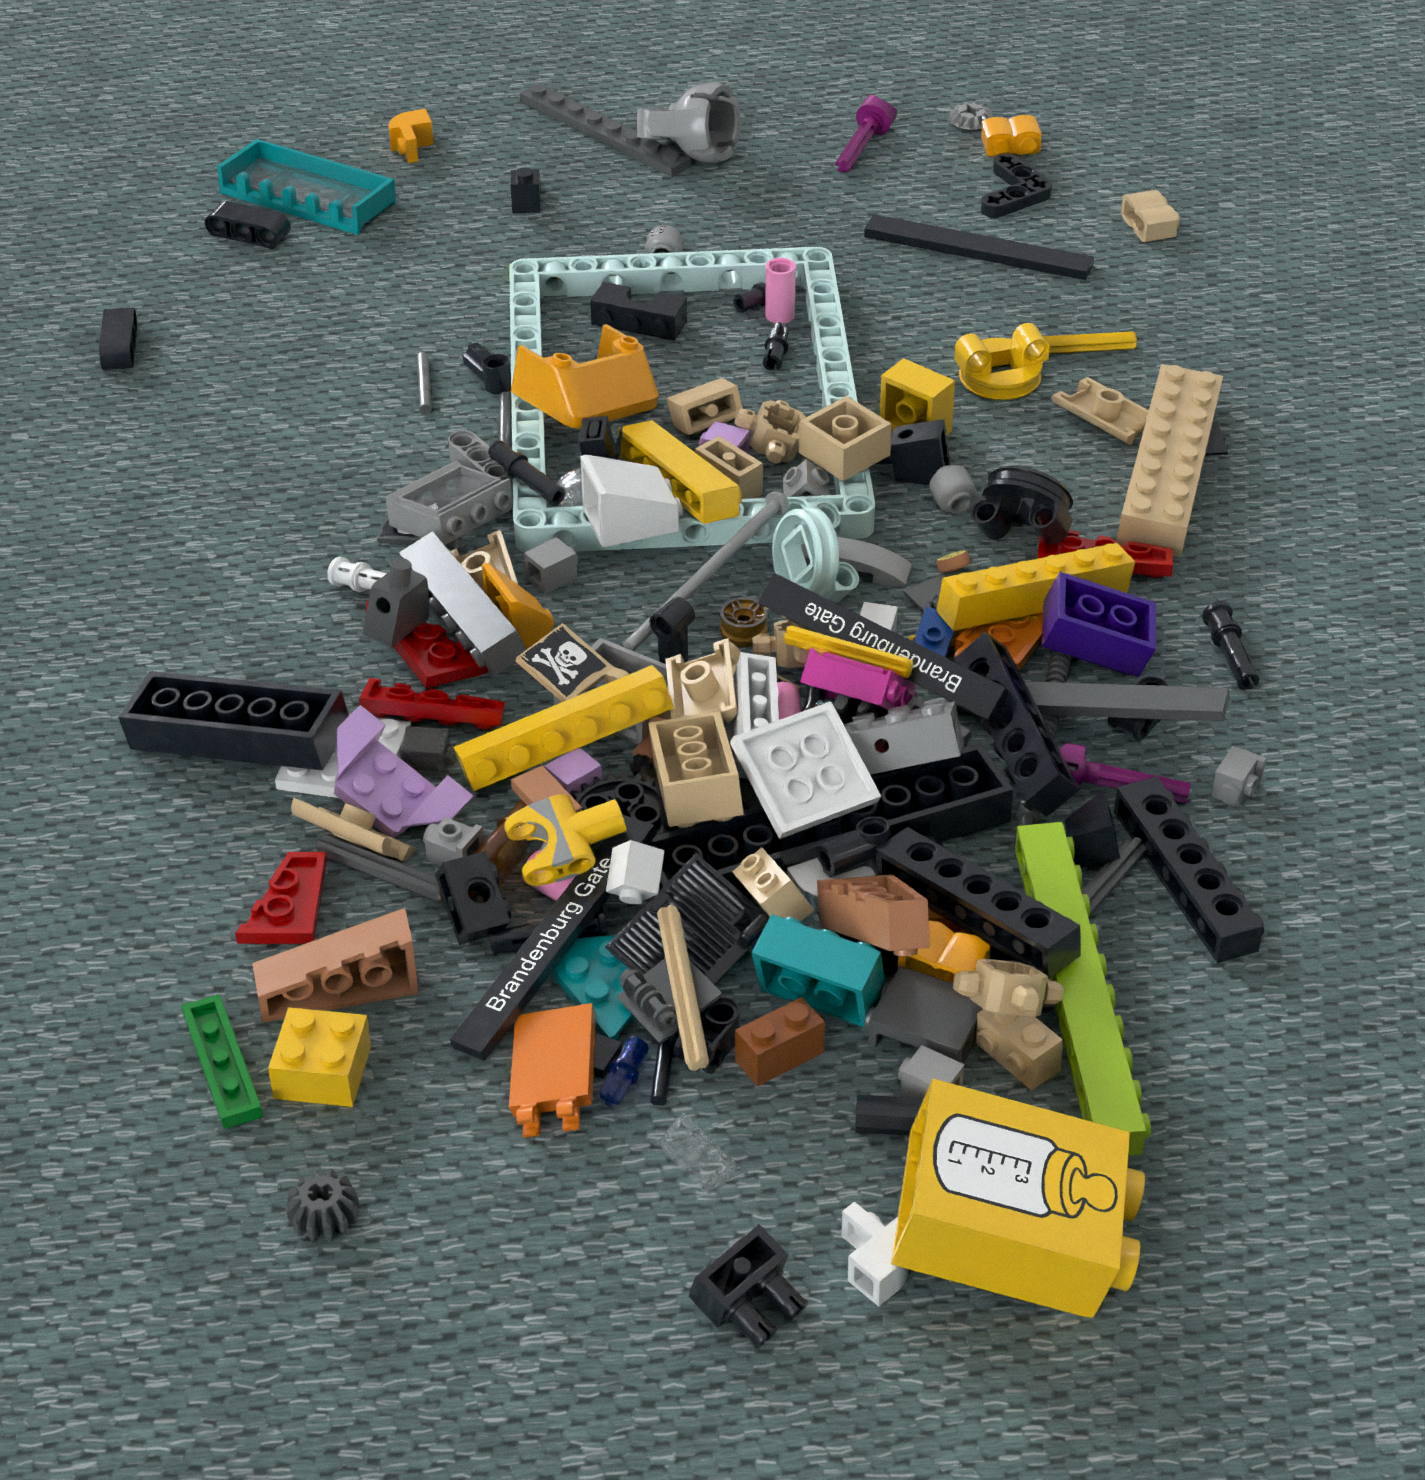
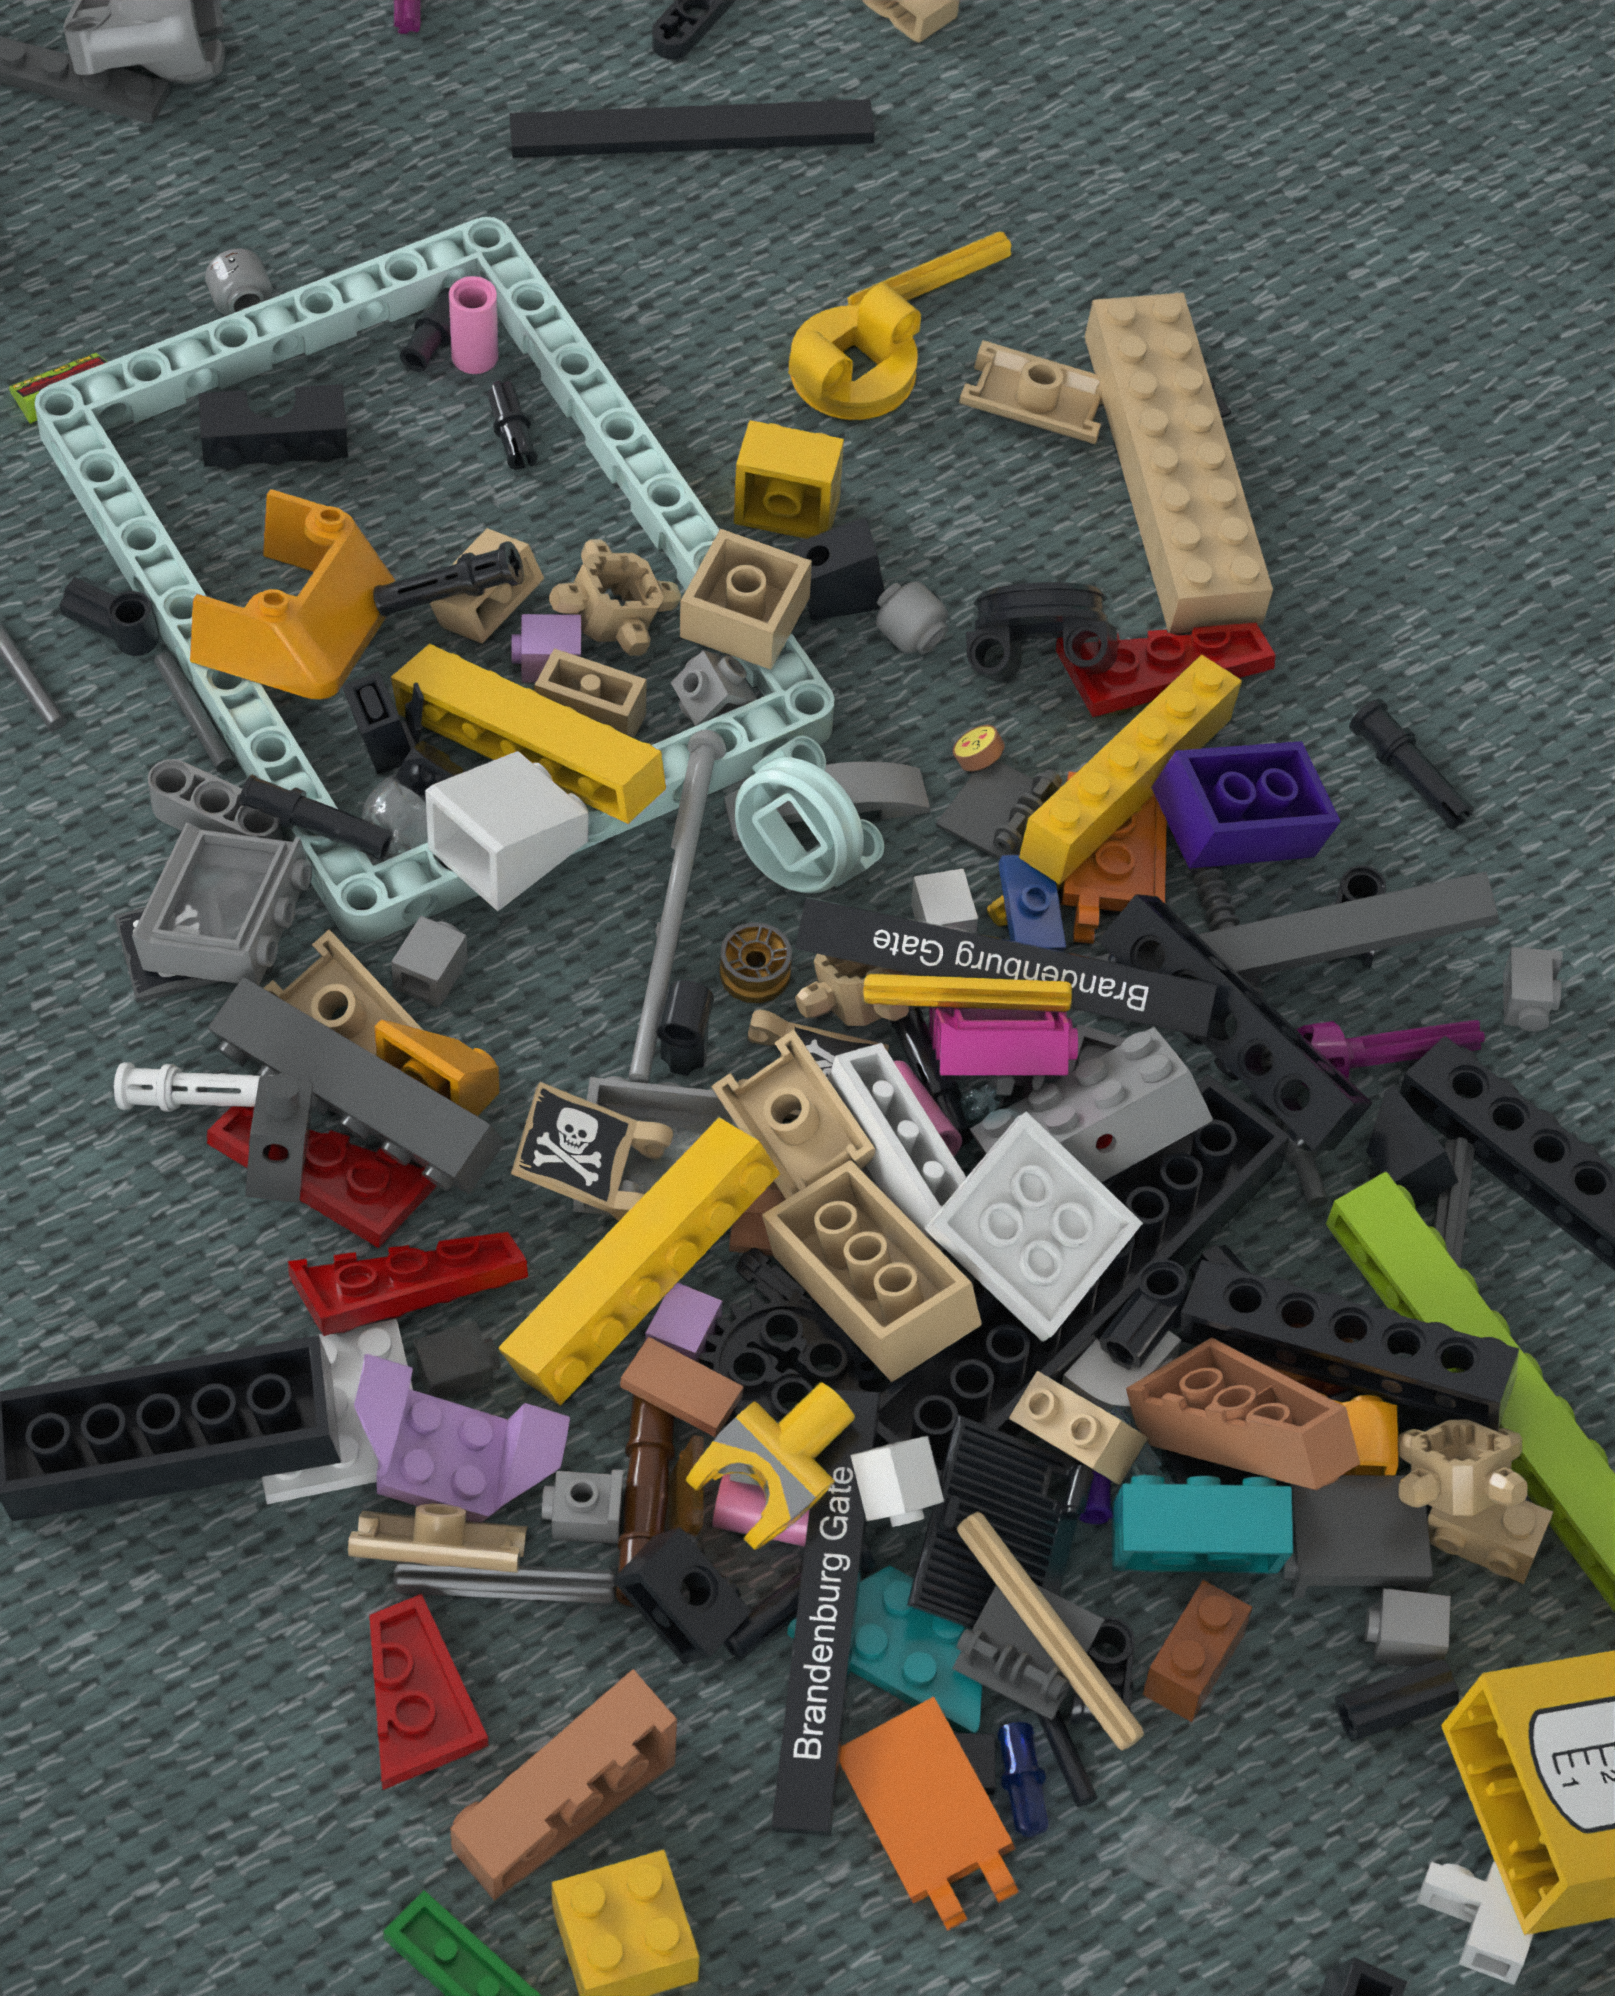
camera: 30 degrees left, 15 degrees up
(690, 387) = (469, 576): none -> black pin

